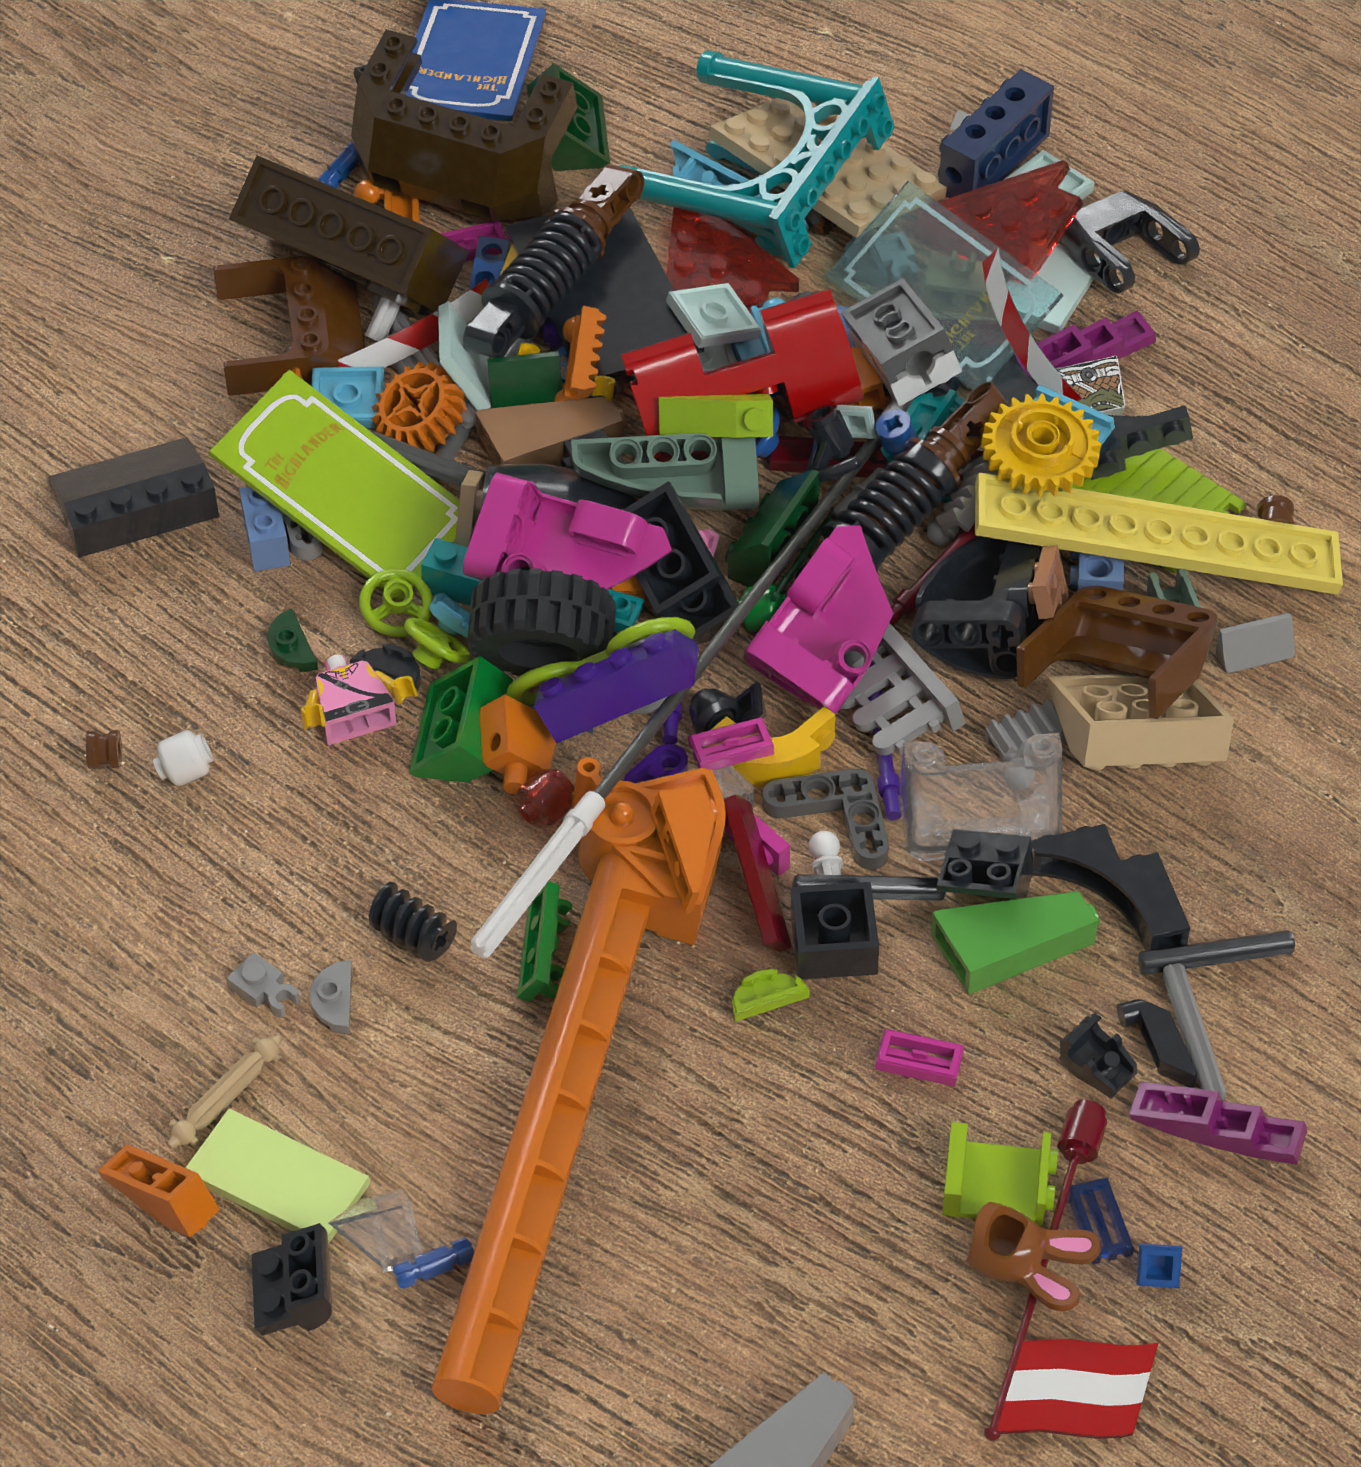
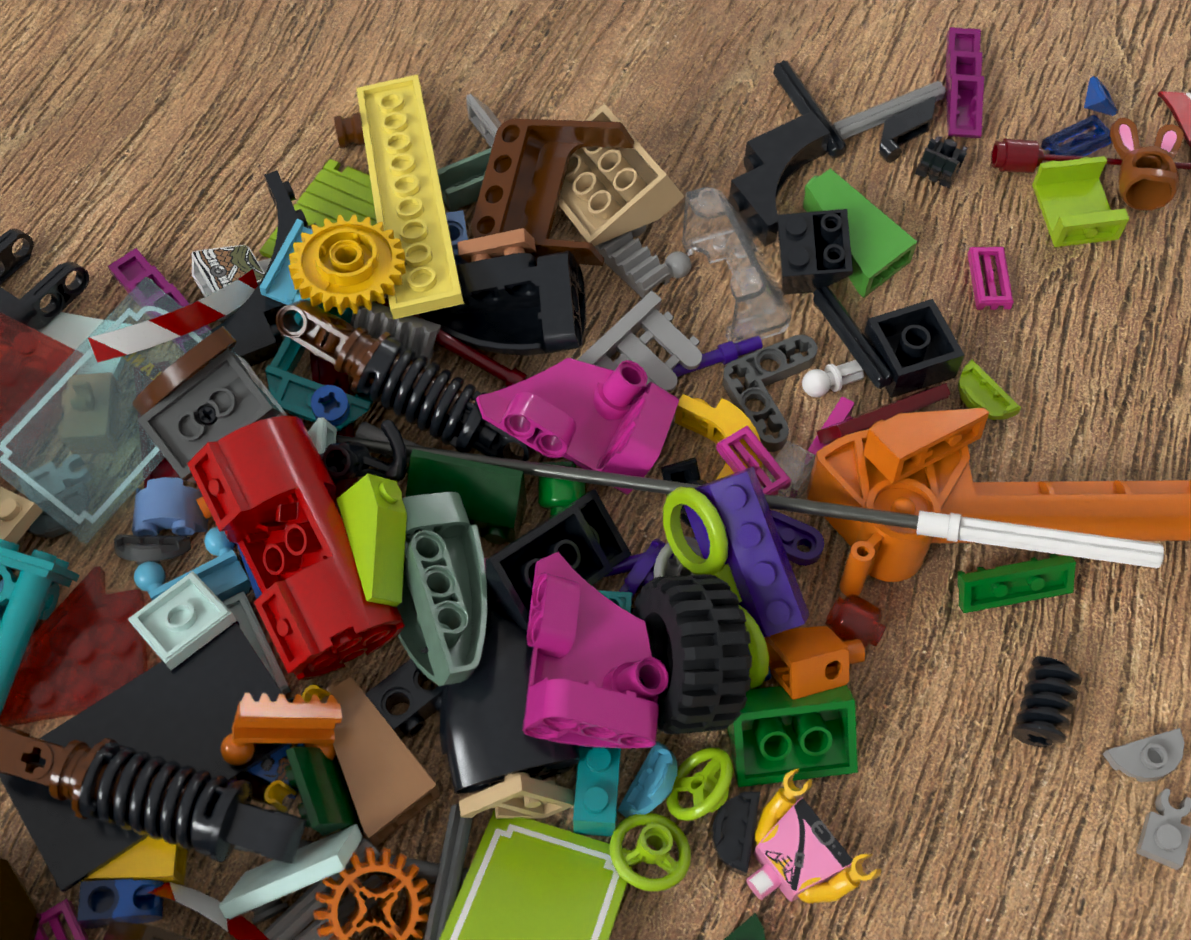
camera: 105 degrees left, 10 degrees up
(951, 322) = (184, 369): none -> reddish brown beam

